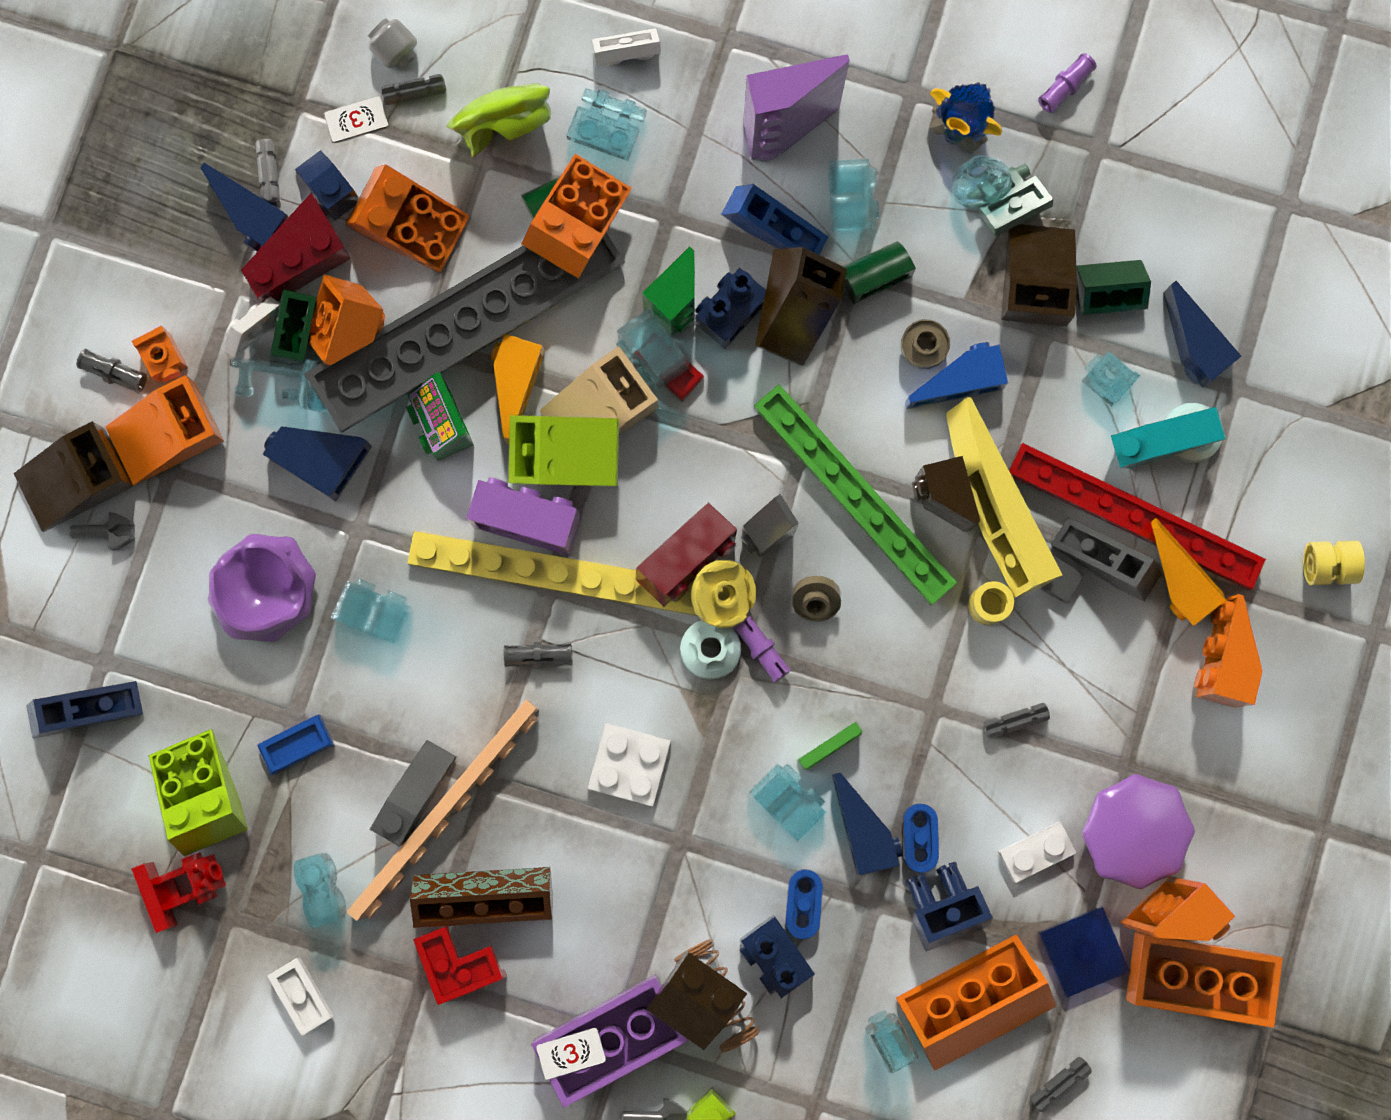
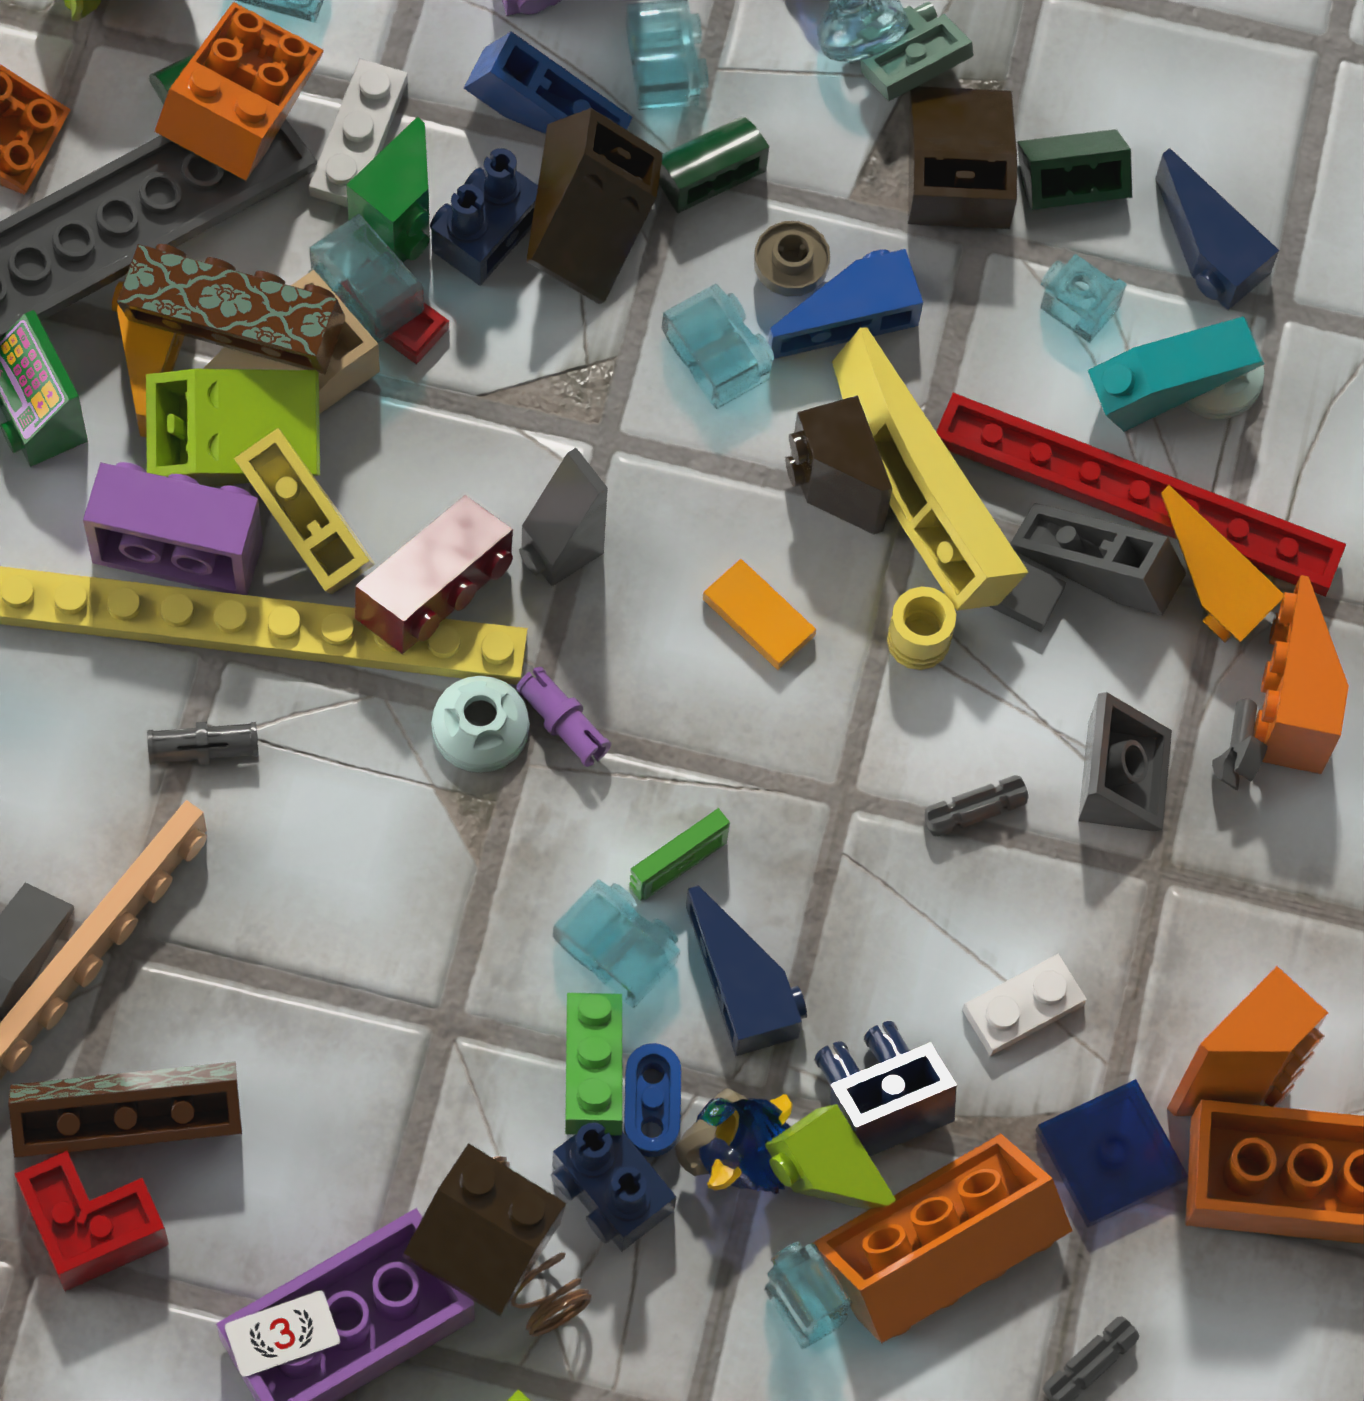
camera: 10 degrees left, 15 degrees down
(566, 374) = (232, 307): none -> reddish brown brick
(607, 513) = (304, 512): none -> light yellow slope
(629, 764) = (357, 904): white plate -> none
(652, 240) = (358, 129): none -> white plate
(737, 597) = (518, 620): light yellow plate -> none
(769, 883) = (593, 1061): none -> bright green plate
(816, 598) = (644, 633): dark tan plate -> none
(855, 494) = (696, 482): bright green plate -> none
(855, 938) = (732, 1139): none -> clear blue hair
(874, 402) = (717, 345): none -> clear light blue brick
(889, 584) = (759, 614): none -> light orange tile
(907, 955) = (827, 1161): none -> lime slope
(920, 837) = (835, 991): blue plate -> none
(1111, 701) = (1124, 767): none -> dark grey slope
(1138, 831) = (1178, 951): medium lavender piece -> none
(1187, 701) = (1245, 751): none -> dark grey bar

